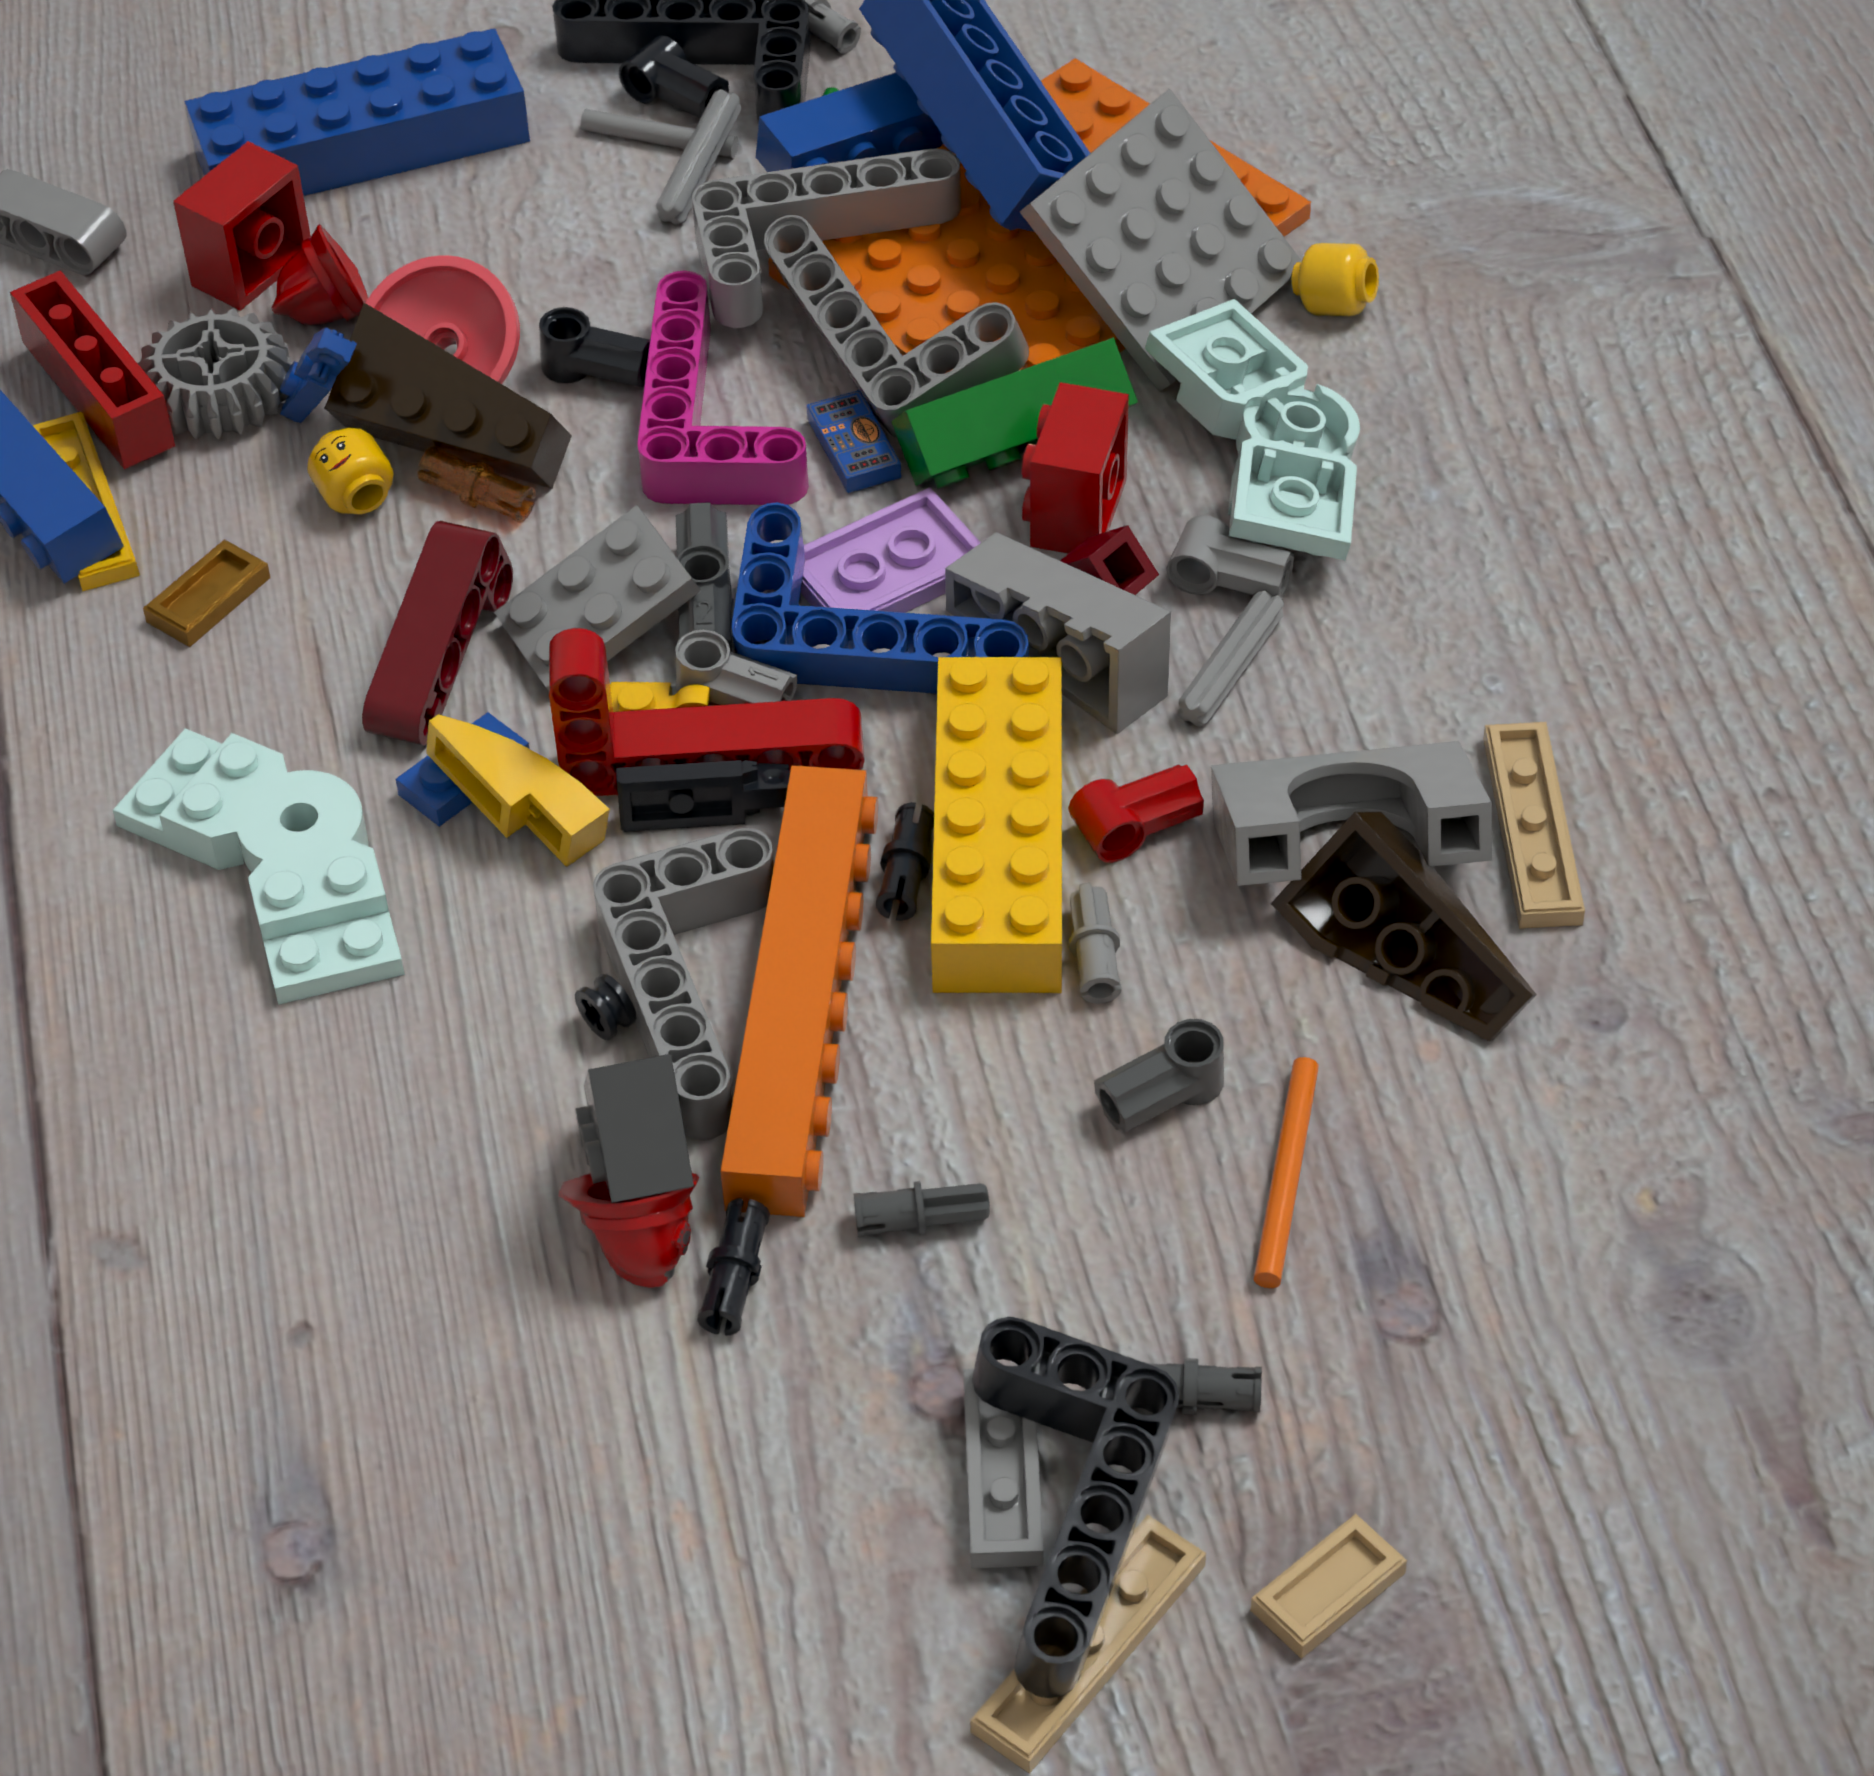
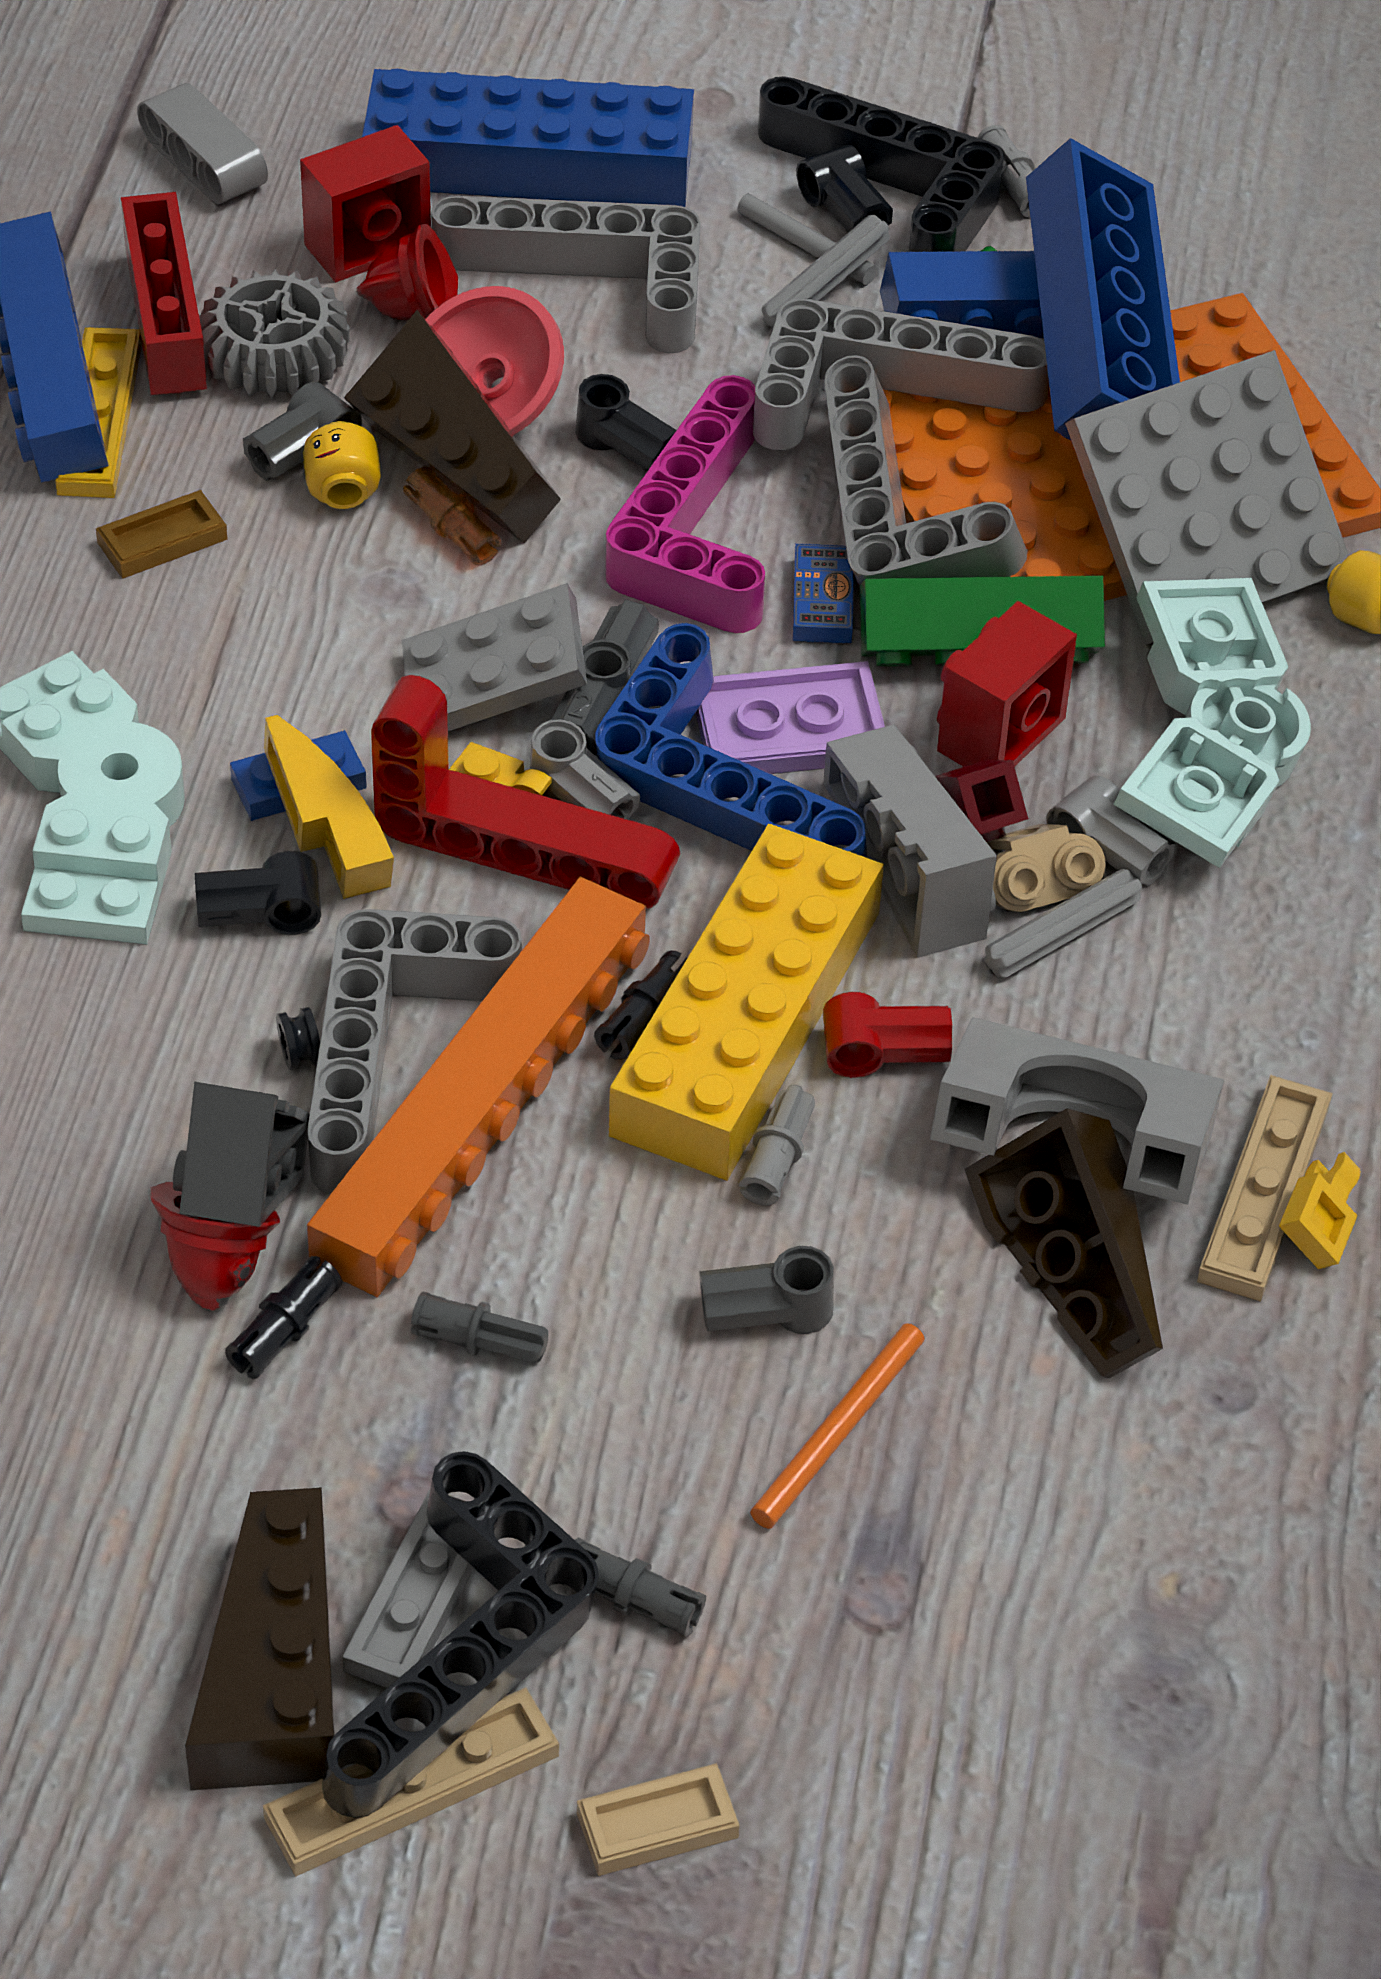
camera: 20 degrees right, 0 degrees up
(282, 464) = (282, 441): none -> dark grey piece
(315, 373) = (352, 357): blue hinge -> none
(451, 584) = (333, 632): dark red beam -> none
(469, 195) = (584, 241): none -> light grey beam
(508, 881) = (279, 893): none -> black piece
(698, 793) = (486, 872): black hinge -> none
(915, 1589) = (268, 1672): none -> dark brown wedge
(1199, 606) = (1044, 866): none -> tan bracket
(1596, 830) = (1318, 1212): none -> yellow plate

